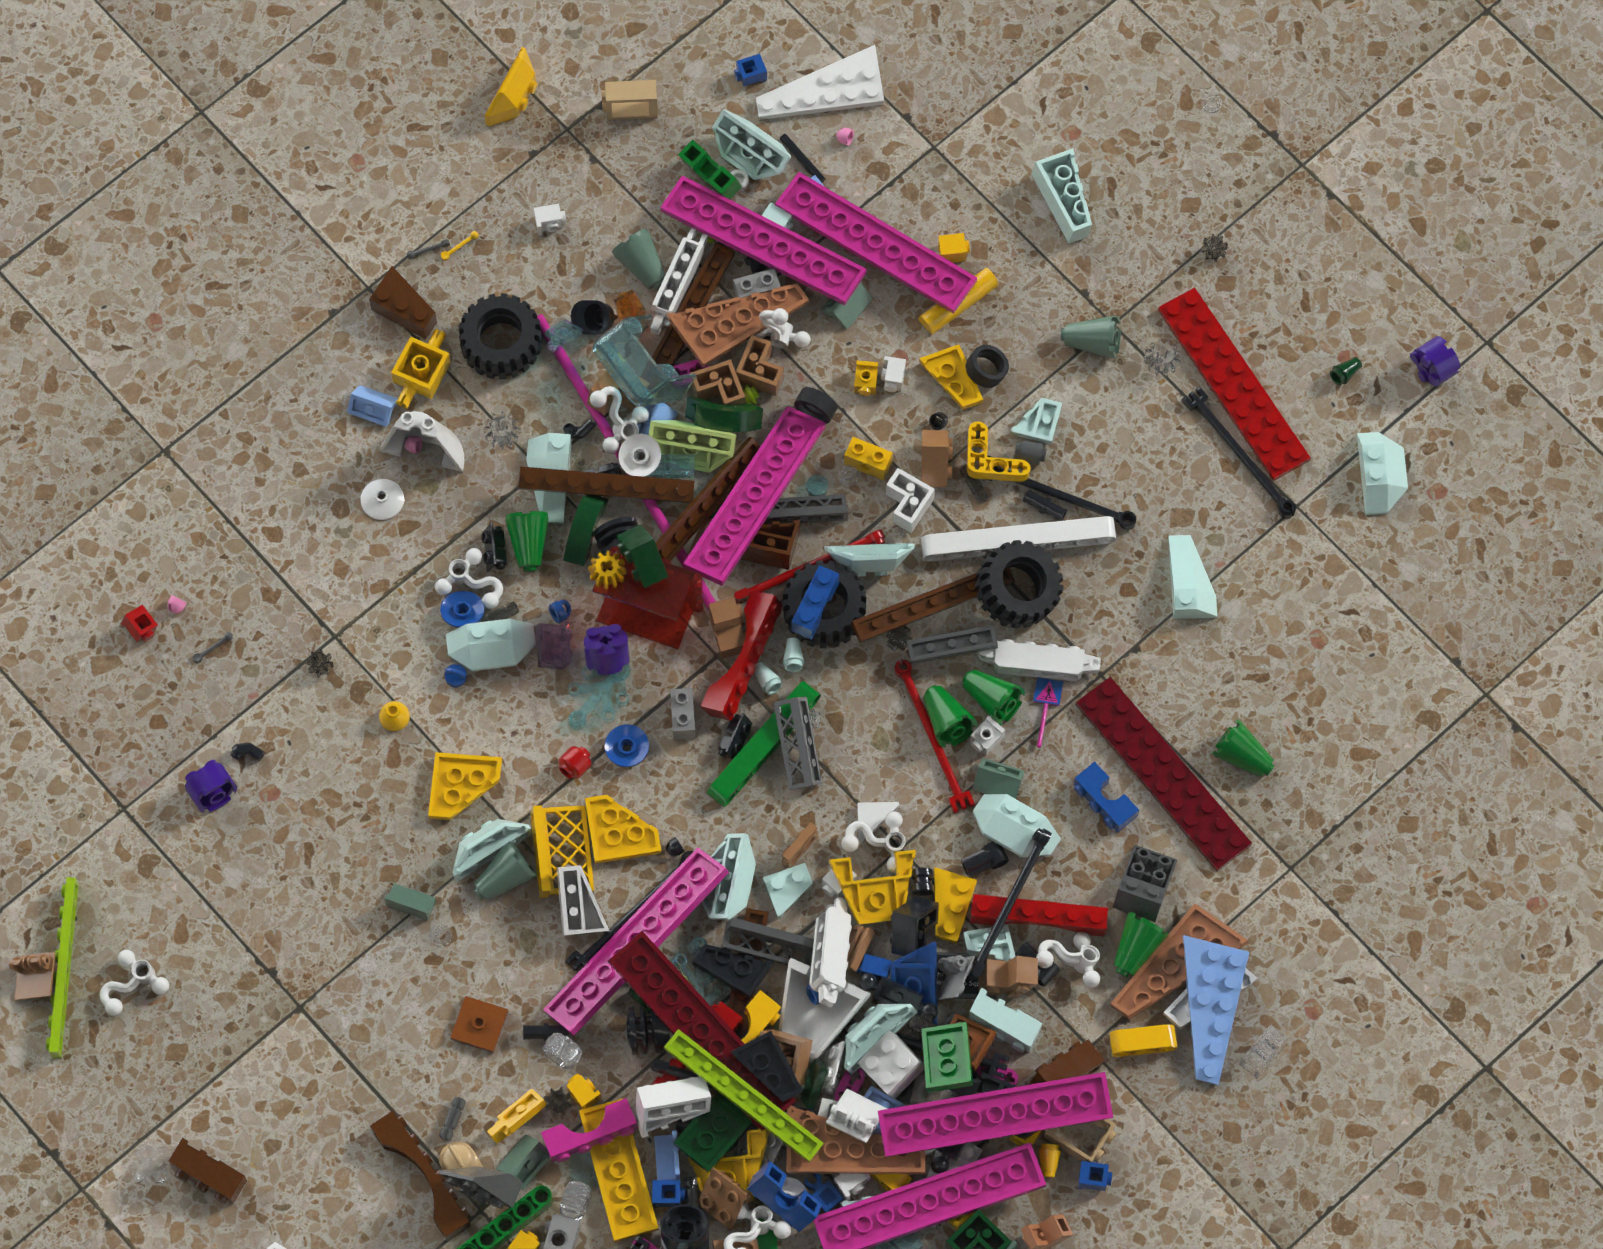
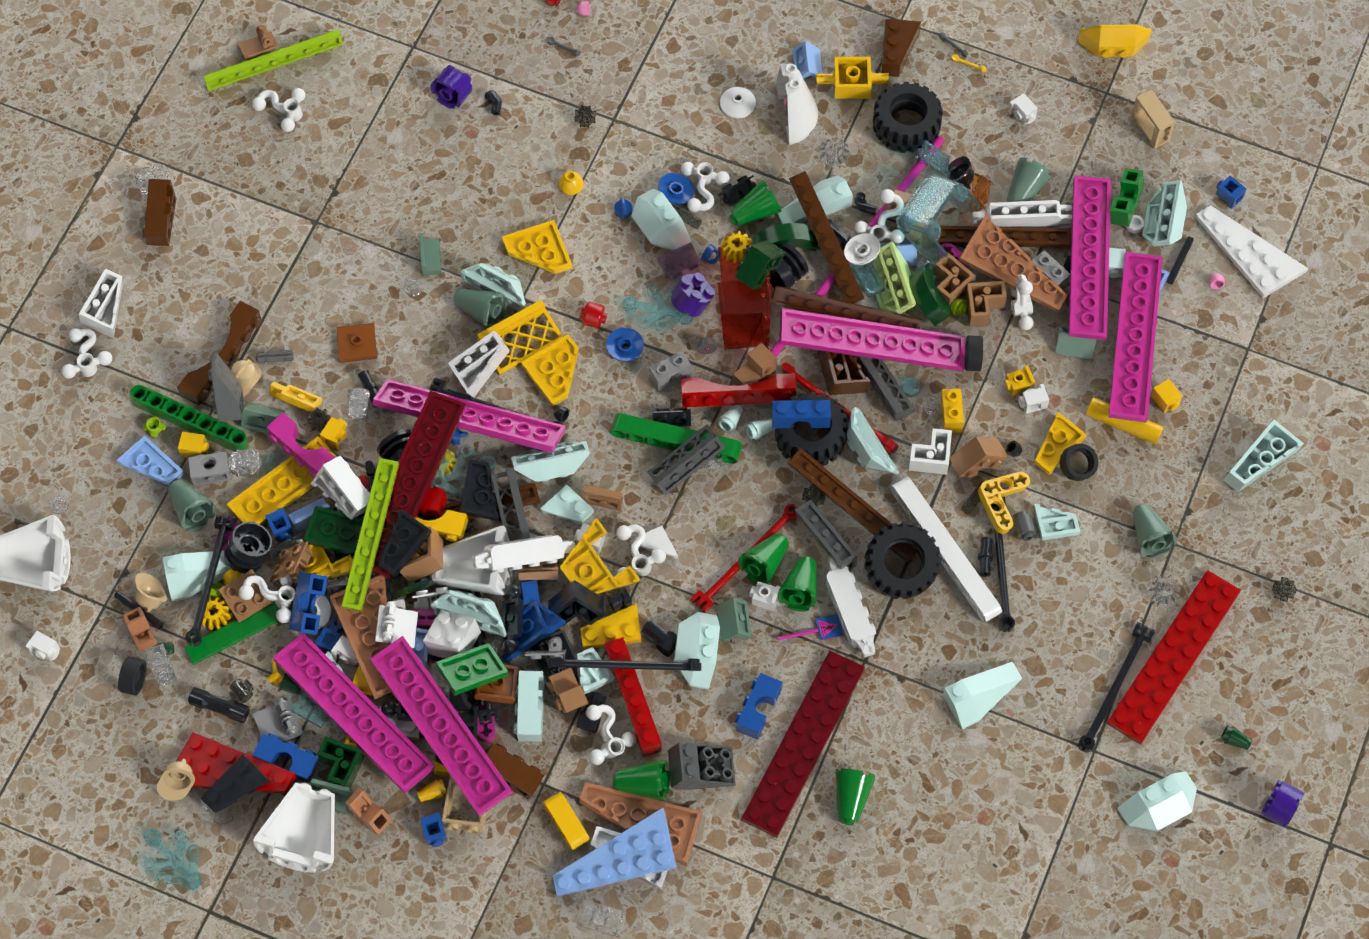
camera: 65 degrees right, 5 degrees down
(669, 664) = (706, 346): none -> dark grey tile

